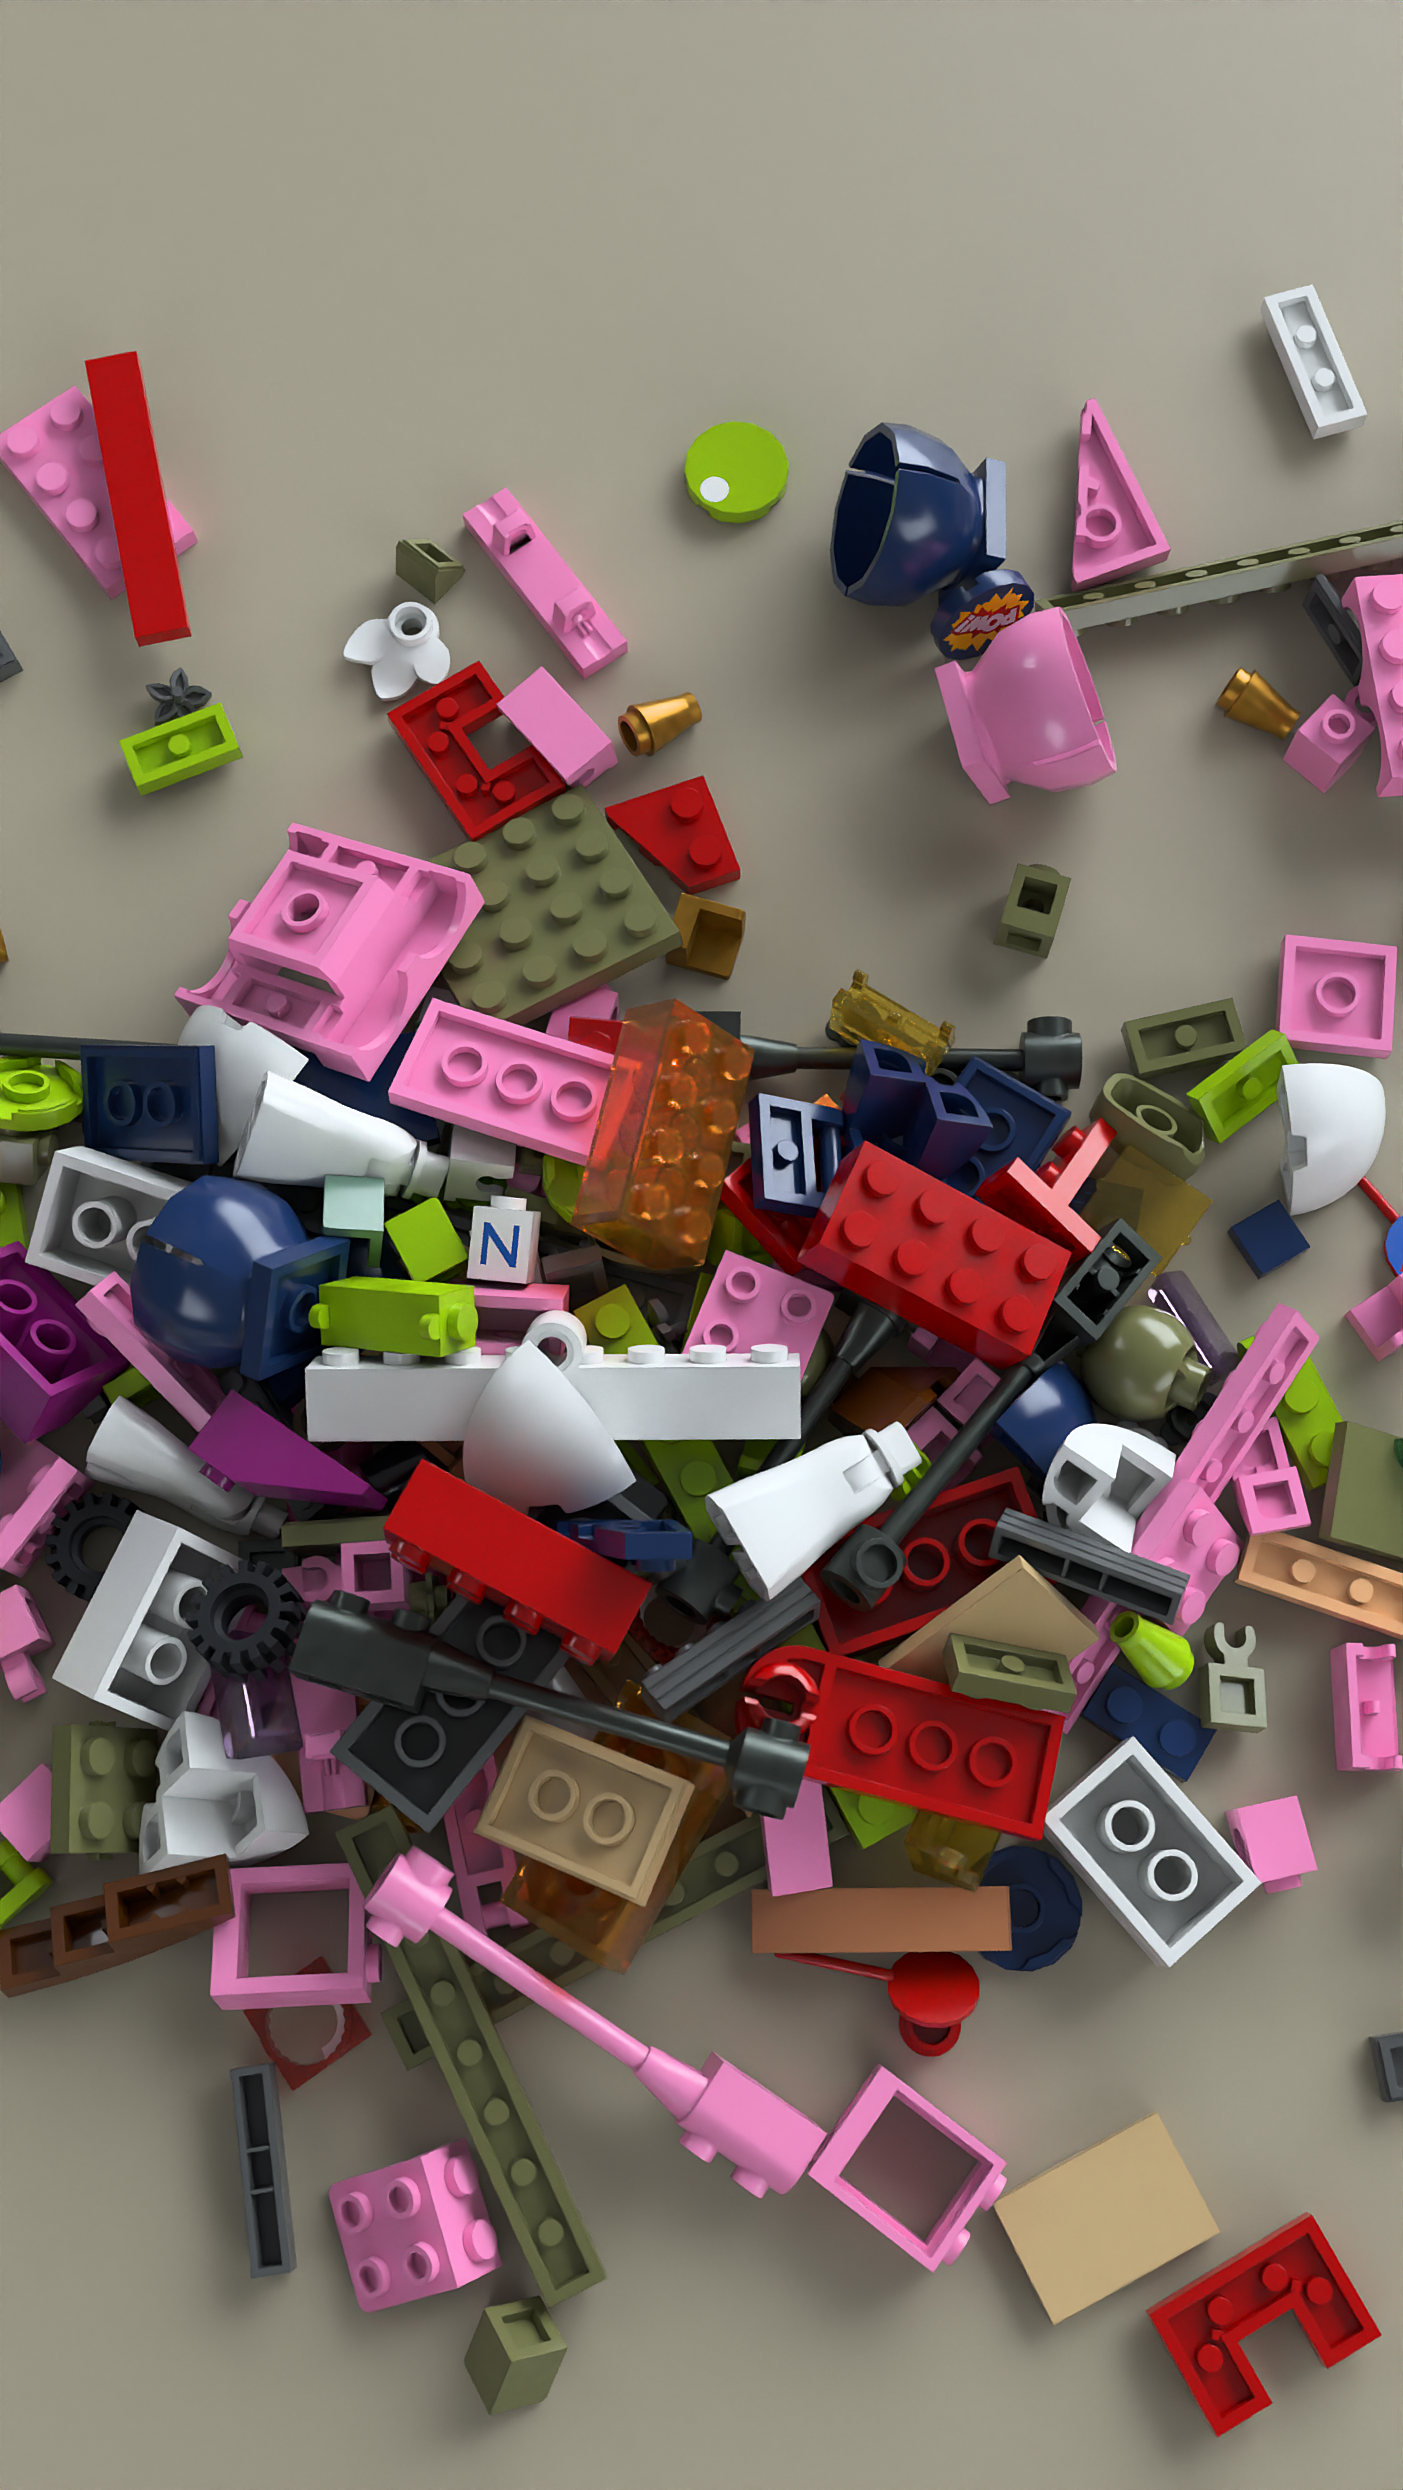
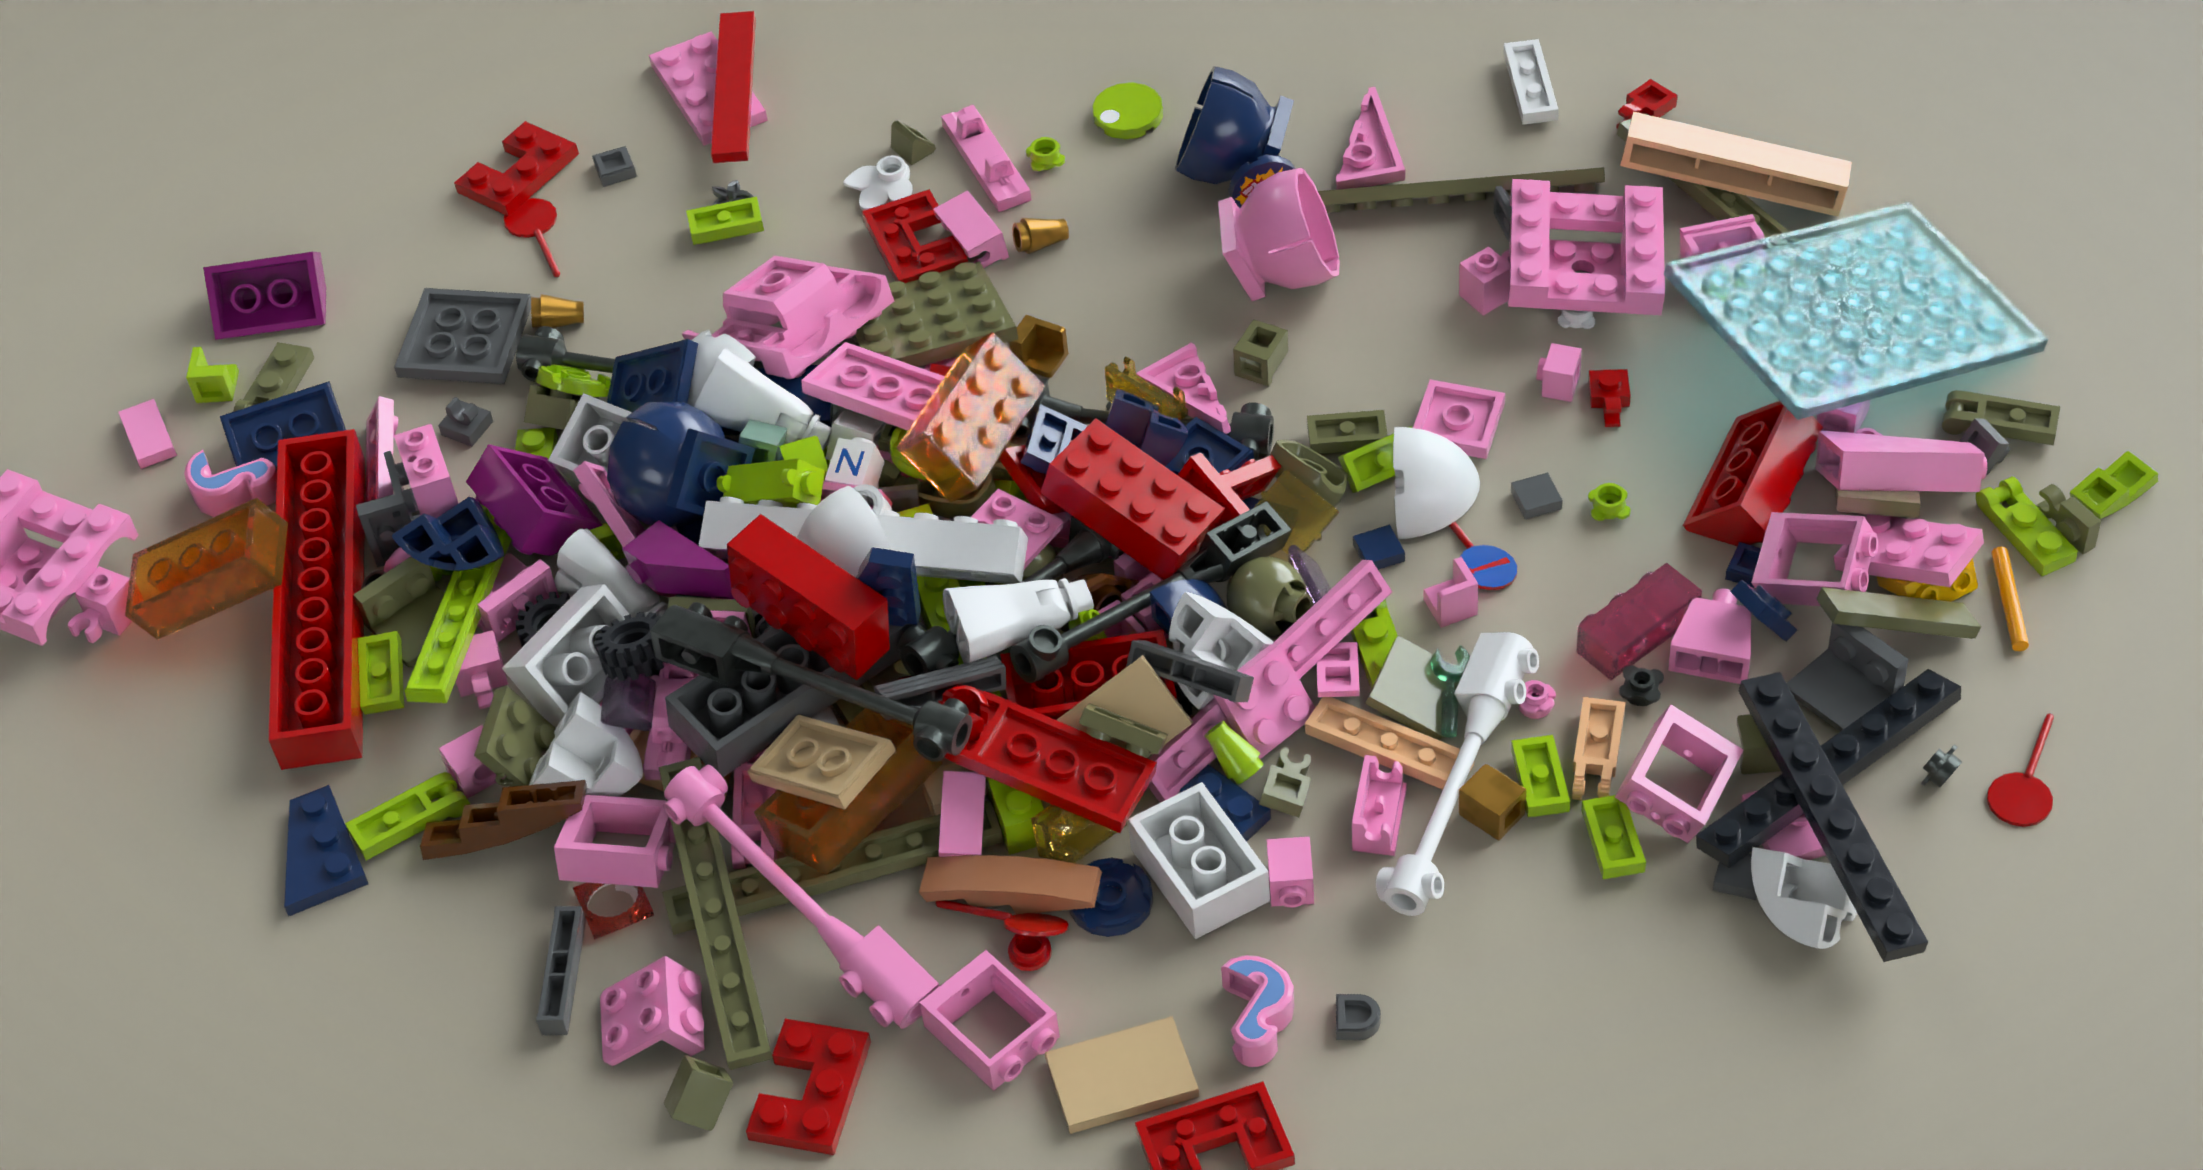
camera: 15 degrees right, 25 degrees down
(628, 557) = (1045, 154): none -> lime plate
(680, 833) = (1037, 293): red wing -> none
(692, 2362) = (835, 1065): none -> red plate
(929, 978) = (1187, 373): none -> bright pink wing
(1257, 704) = (1440, 255): pearl gold cone -> none
(1289, 2091) = (1268, 1008): none -> bright pink animal

